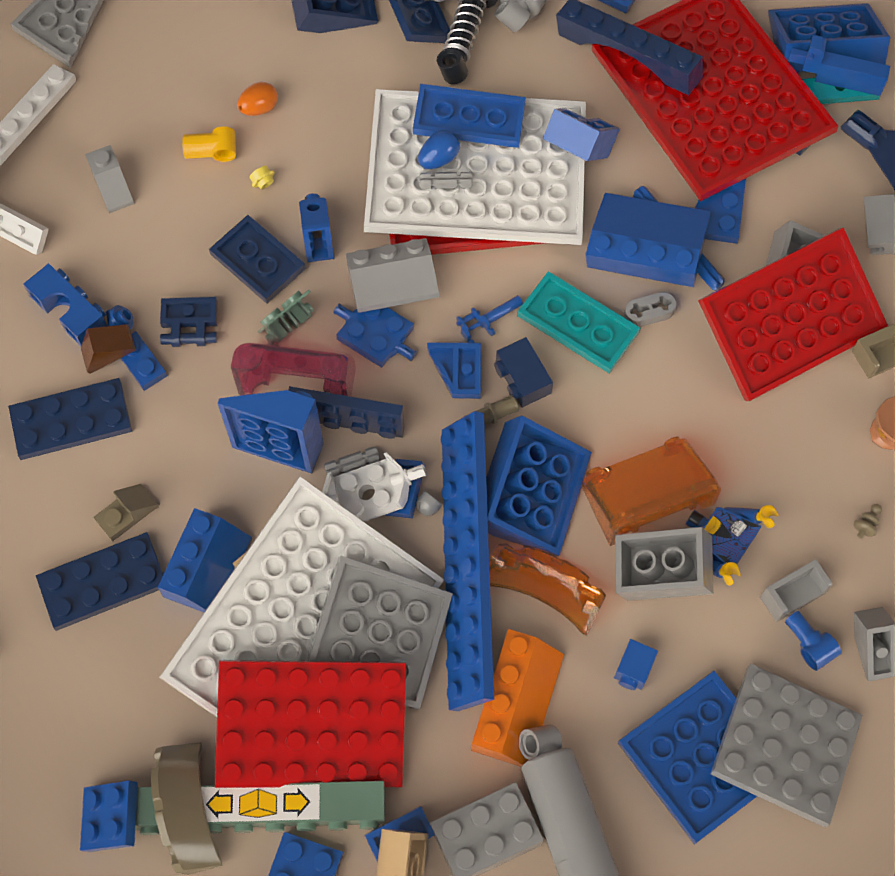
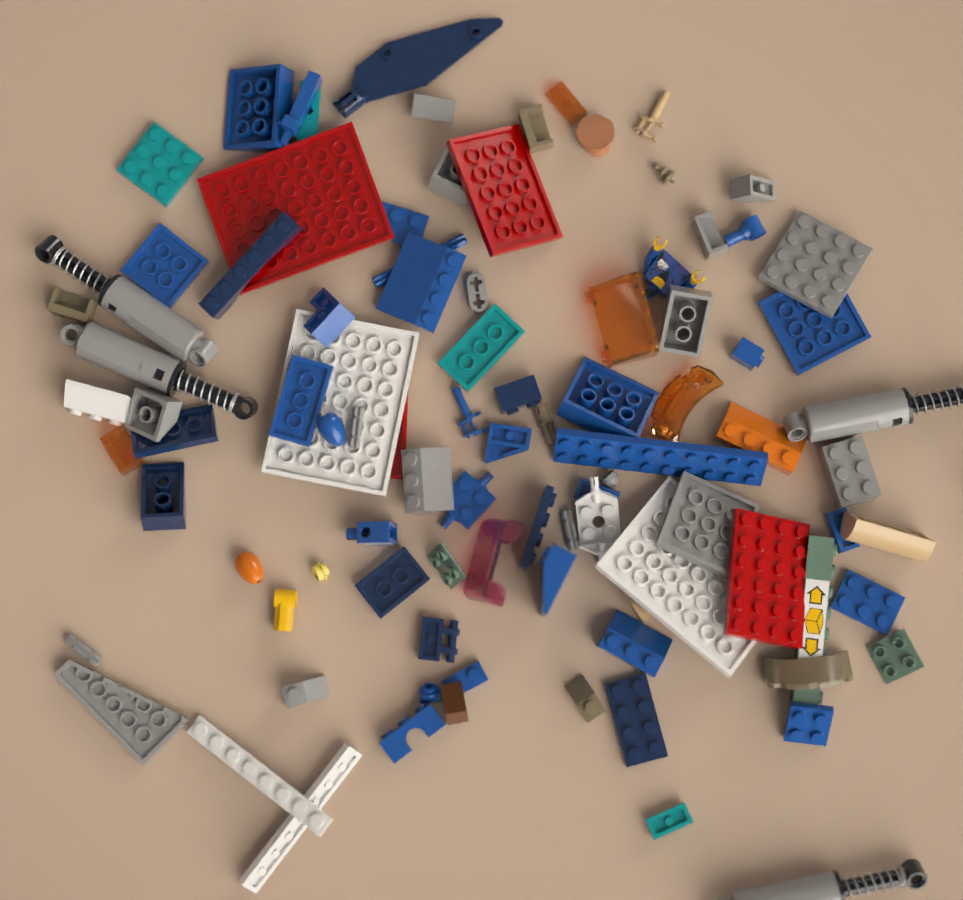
camera: 85 degrees left, 15 degrees up
(69, 419) = (505, 736): dark blue plate -> none

